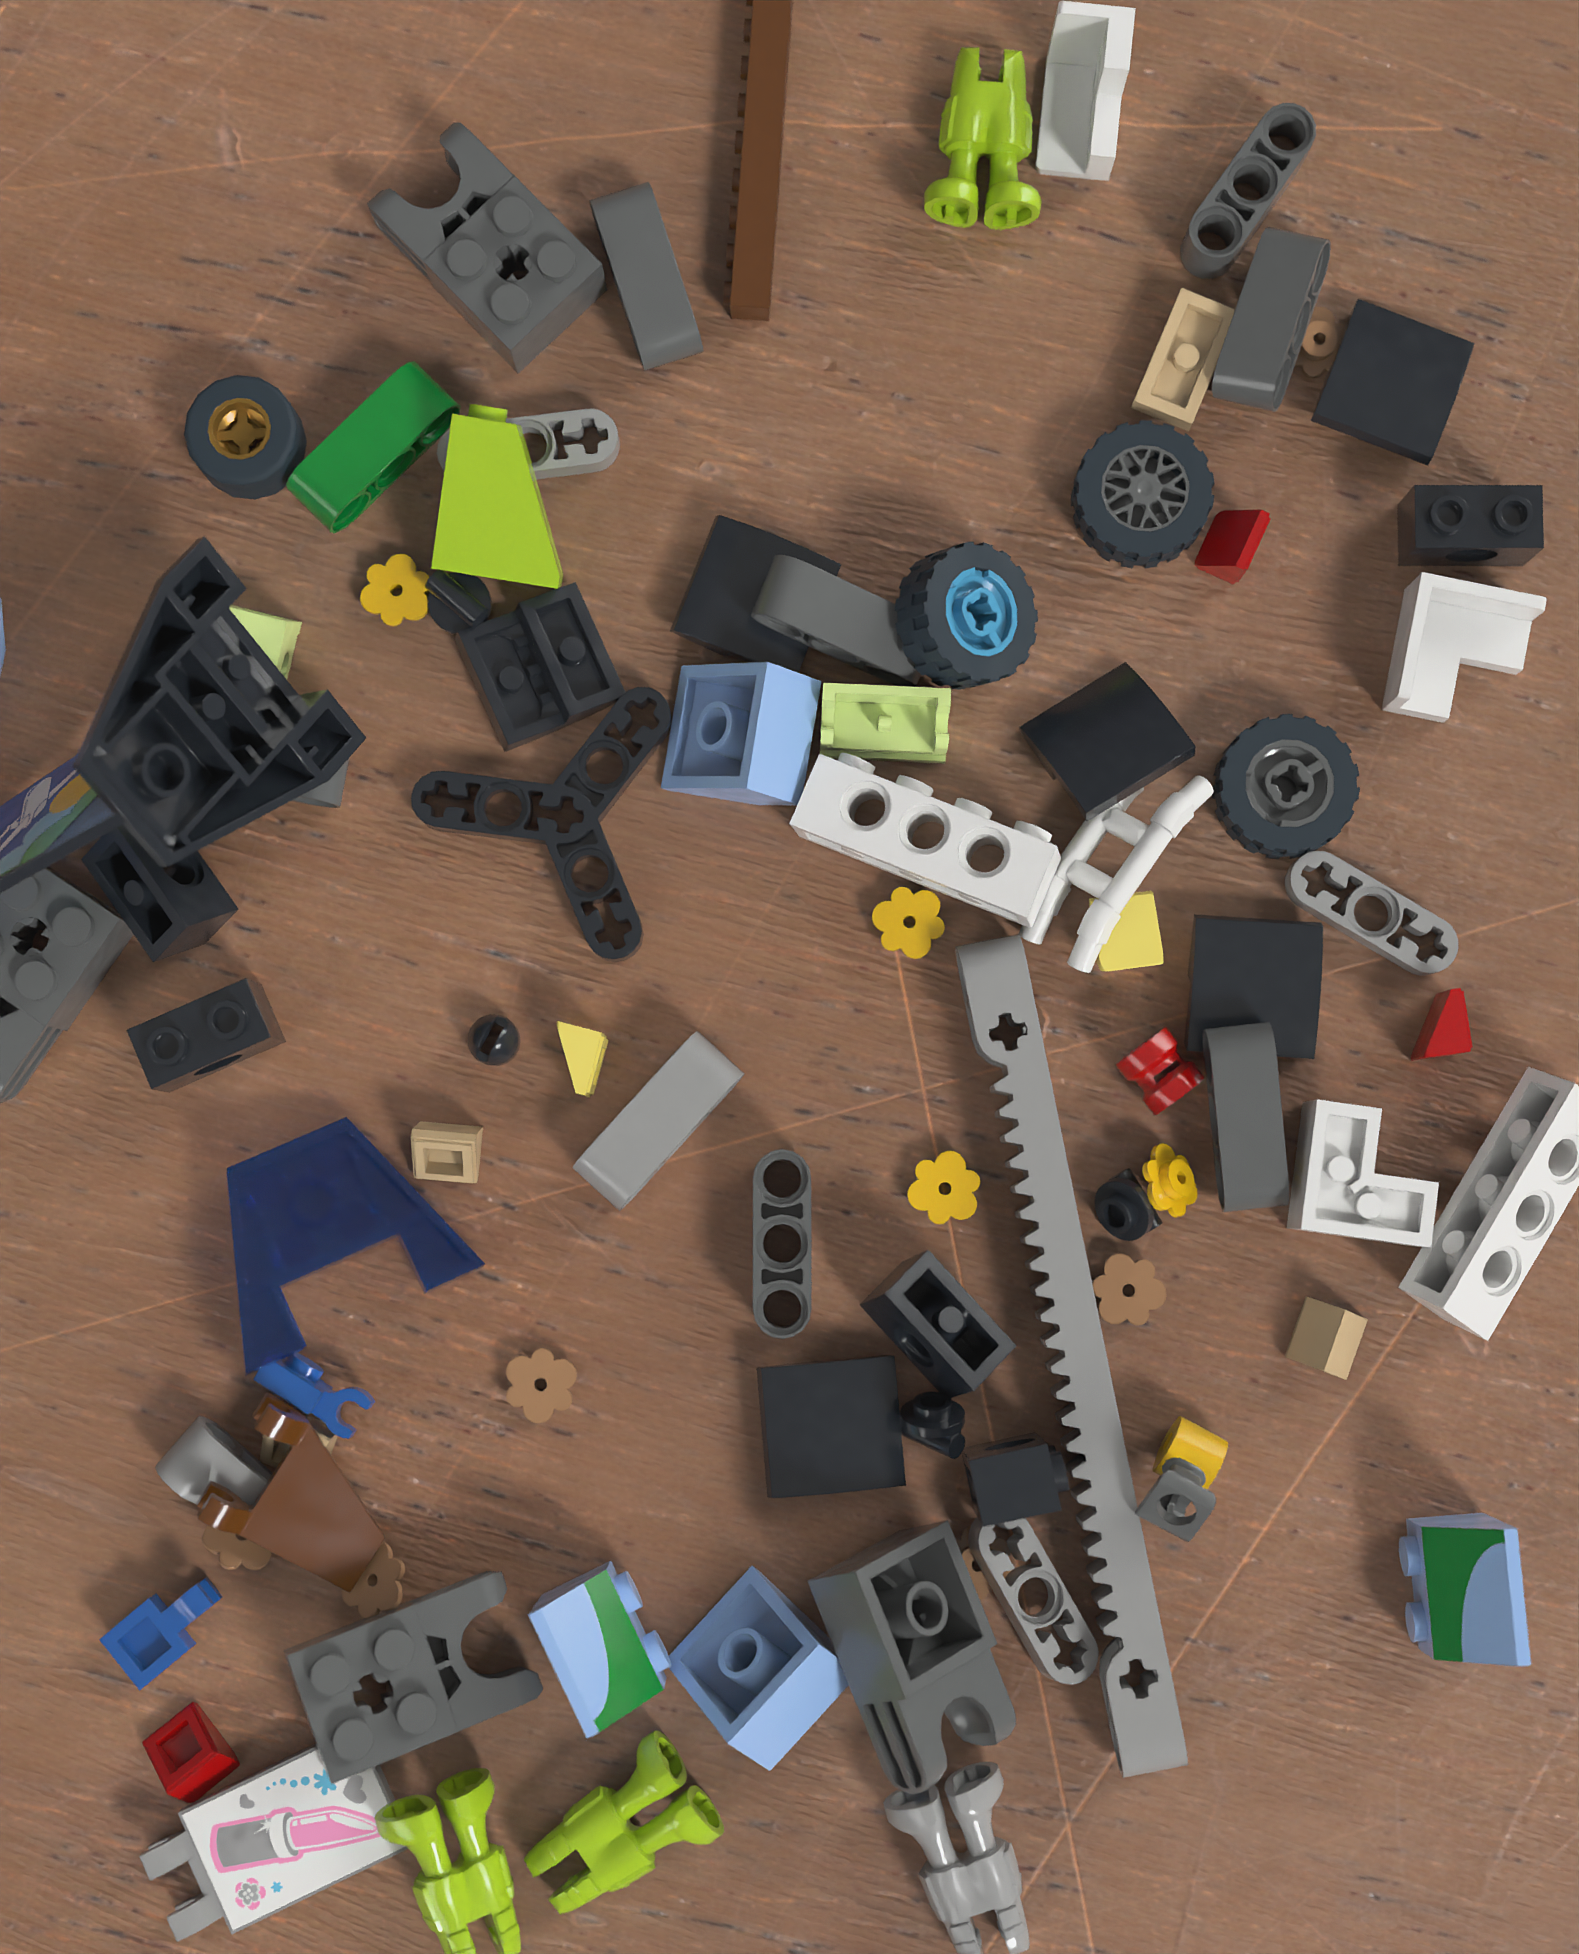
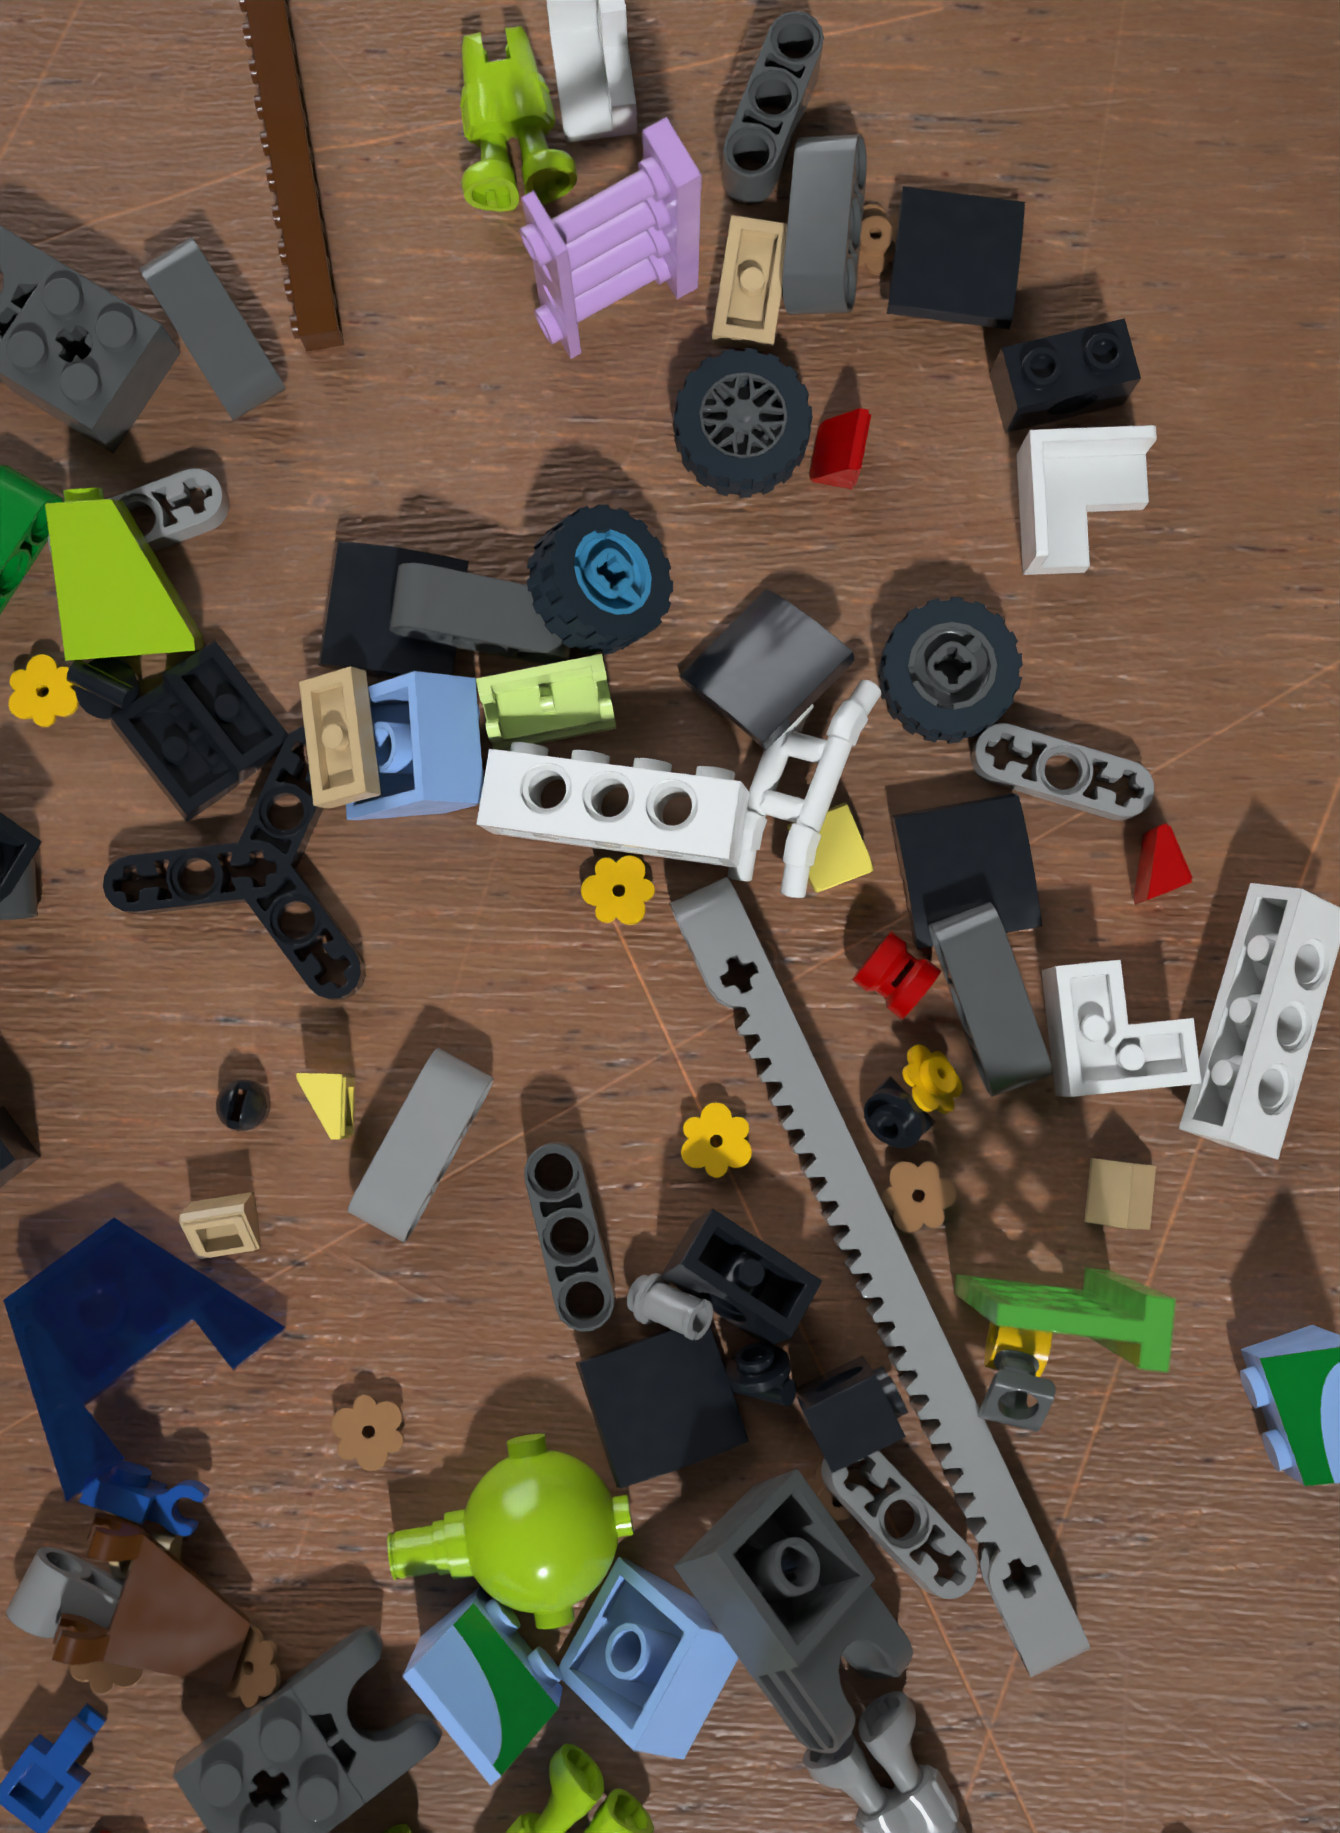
camera: 15 degrees left, 0 degrees up
(675, 1518) = (530, 1534): none -> lime piece
(676, 707) = (339, 738): none -> tan plate
(849, 1328) = (655, 1300): none -> light grey pin
(1066, 295) = (617, 239): none -> lavender fence
(1288, 1444) = (1109, 1310): none -> bright green fence

